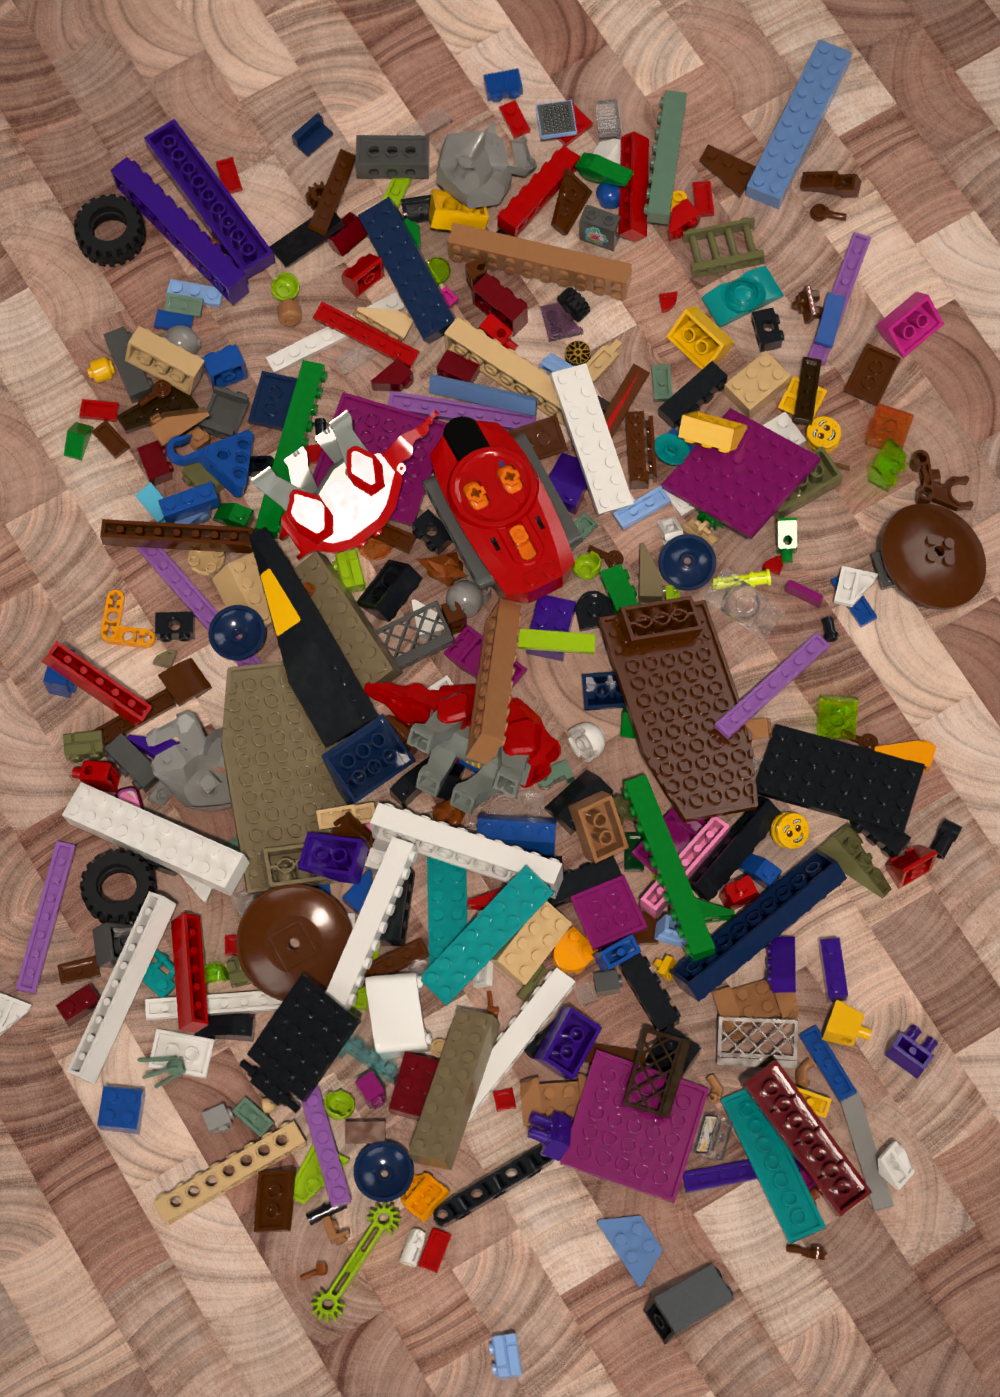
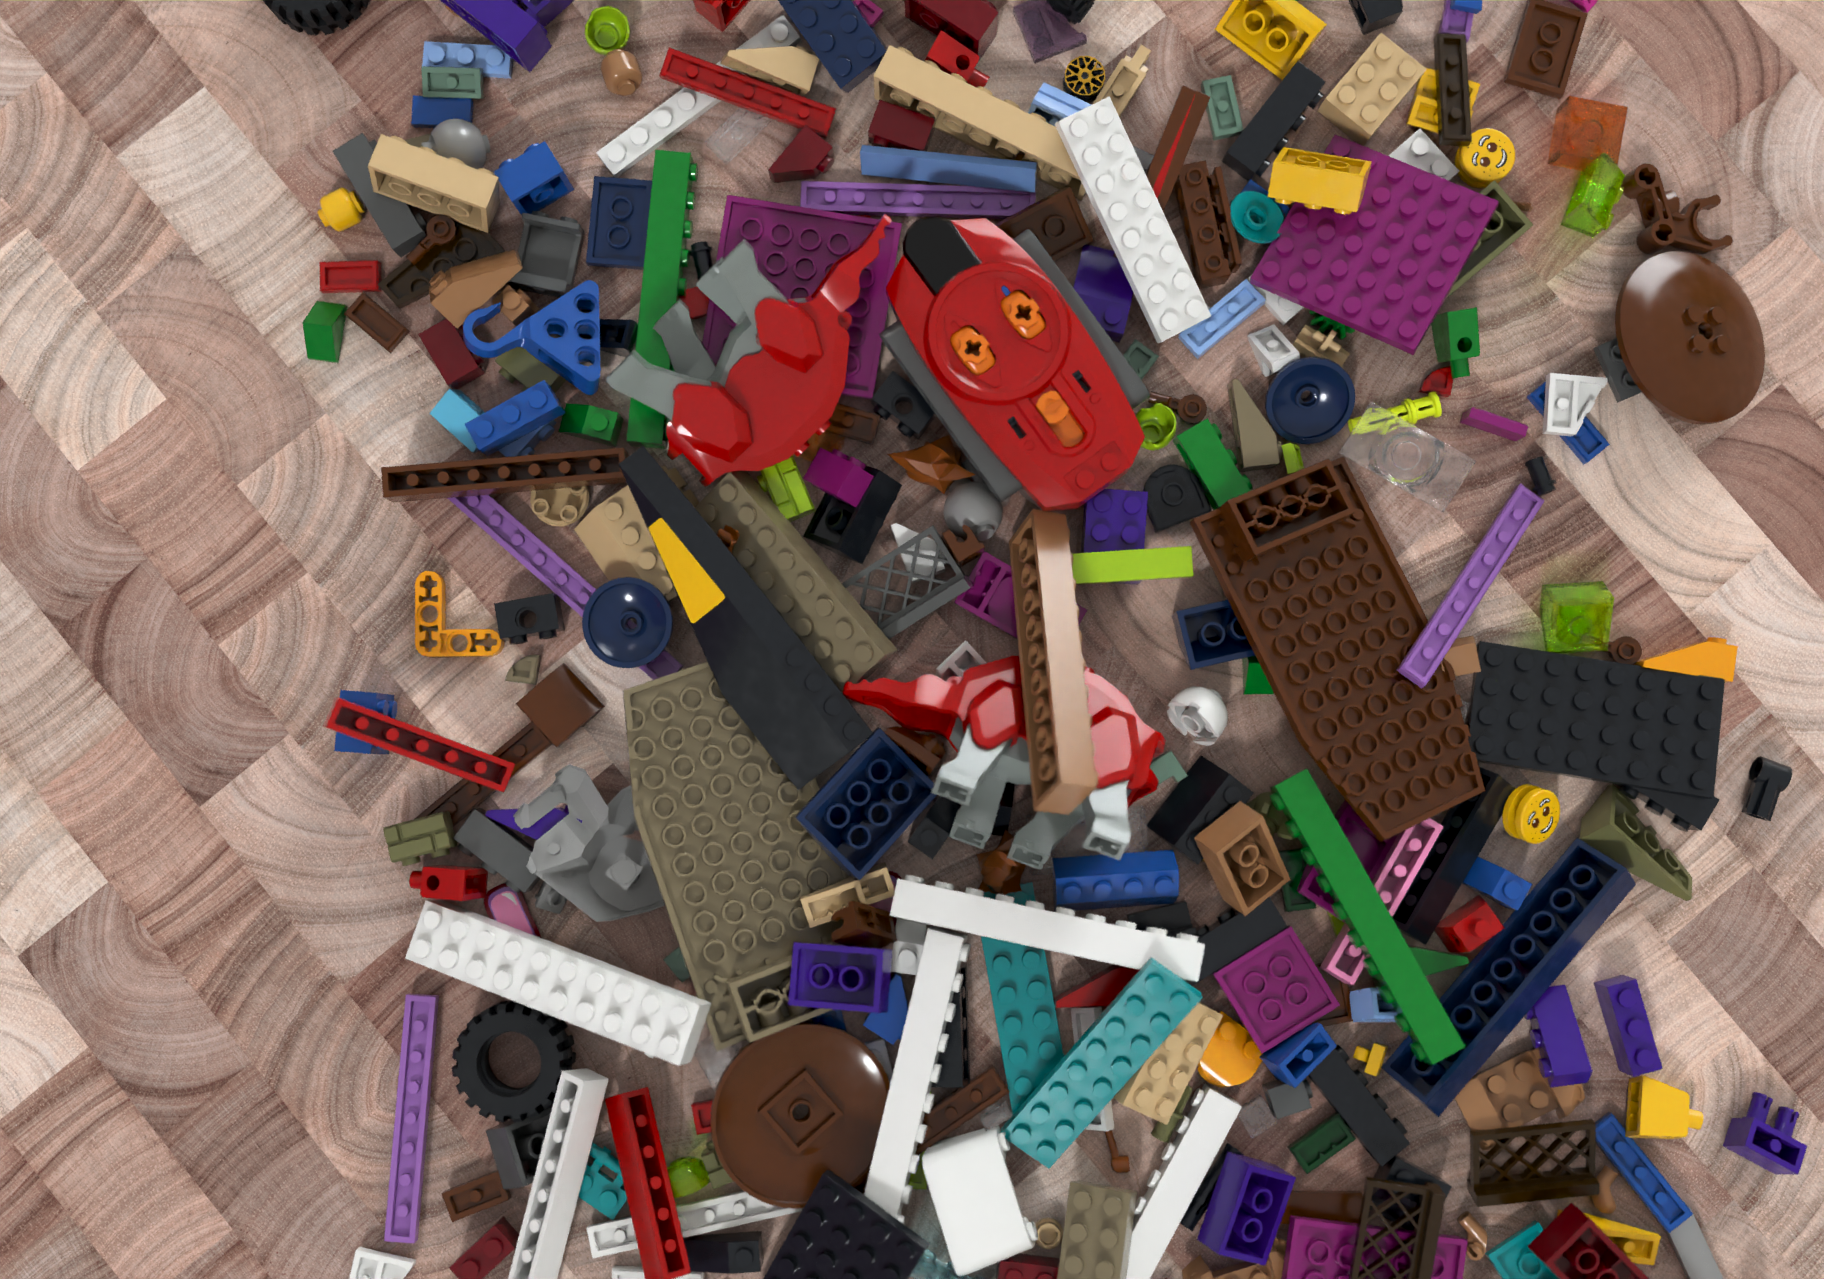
camera: 10 degrees left, 15 degrees up
(383, 566) = (839, 476): none -> magenta brick
(625, 1016) = (1321, 1142): none -> dark green plate
(911, 865) = (1730, 845): red slope -> none

